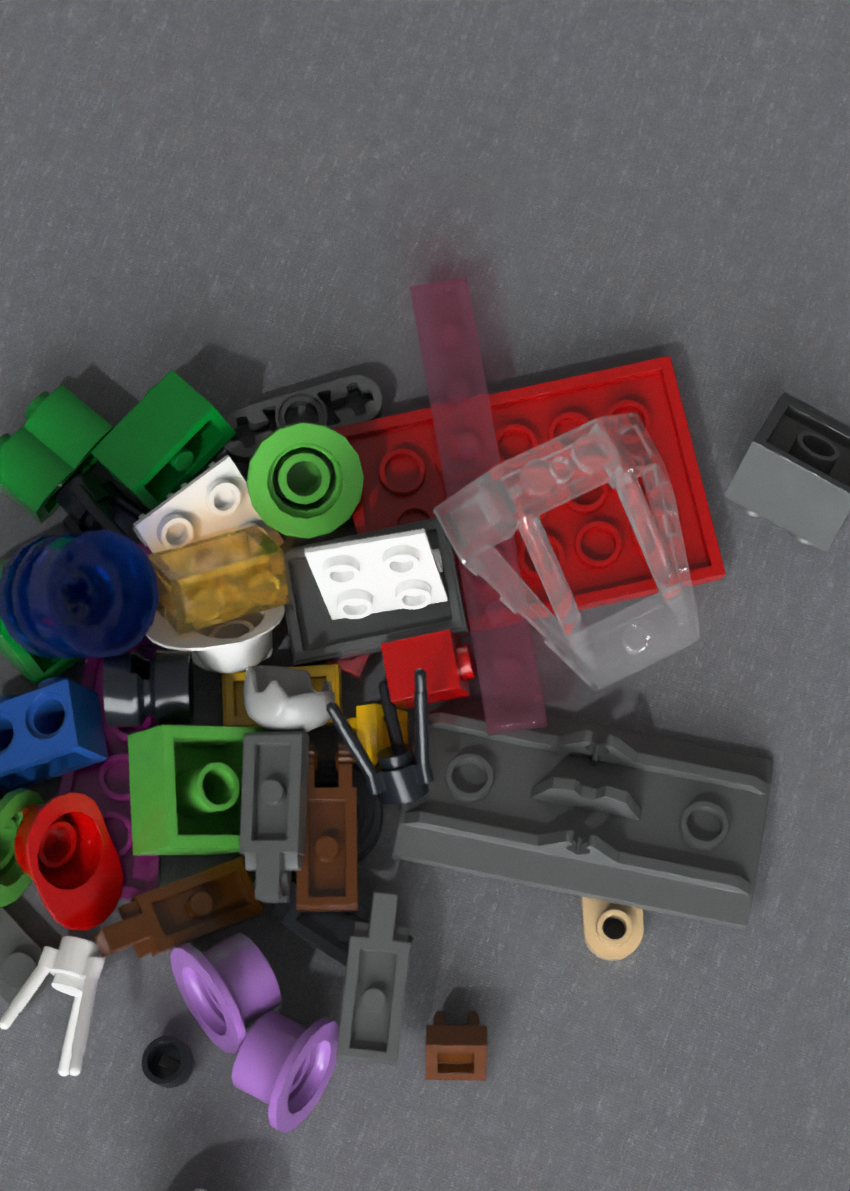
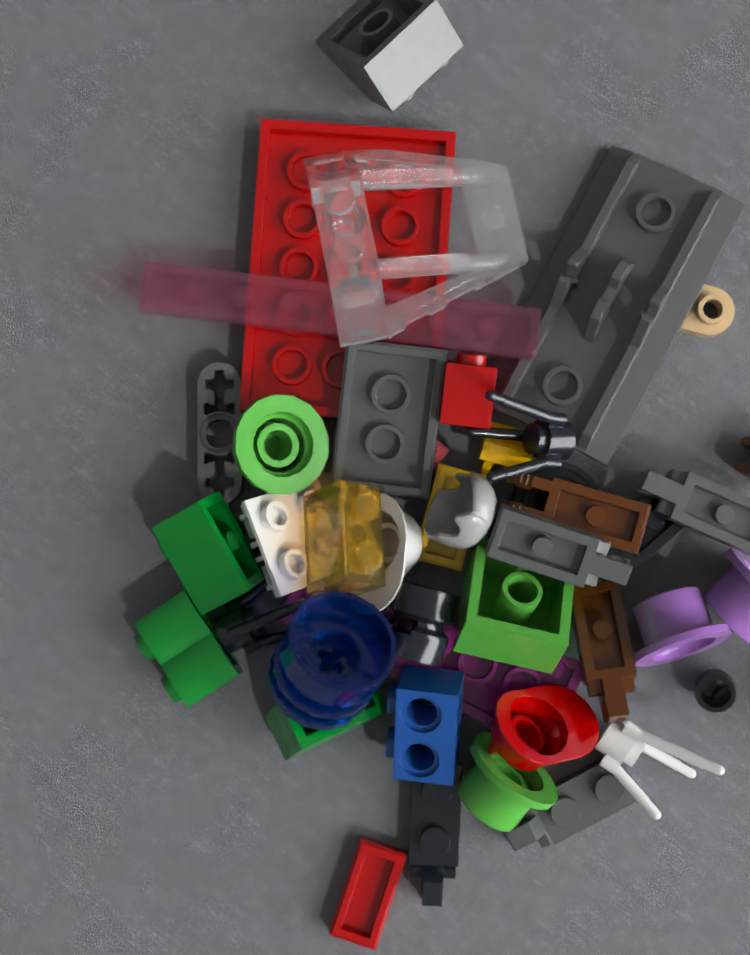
camera: 70 degrees left, 10 degrees up
(378, 574) = (386, 423): white hinge -> none

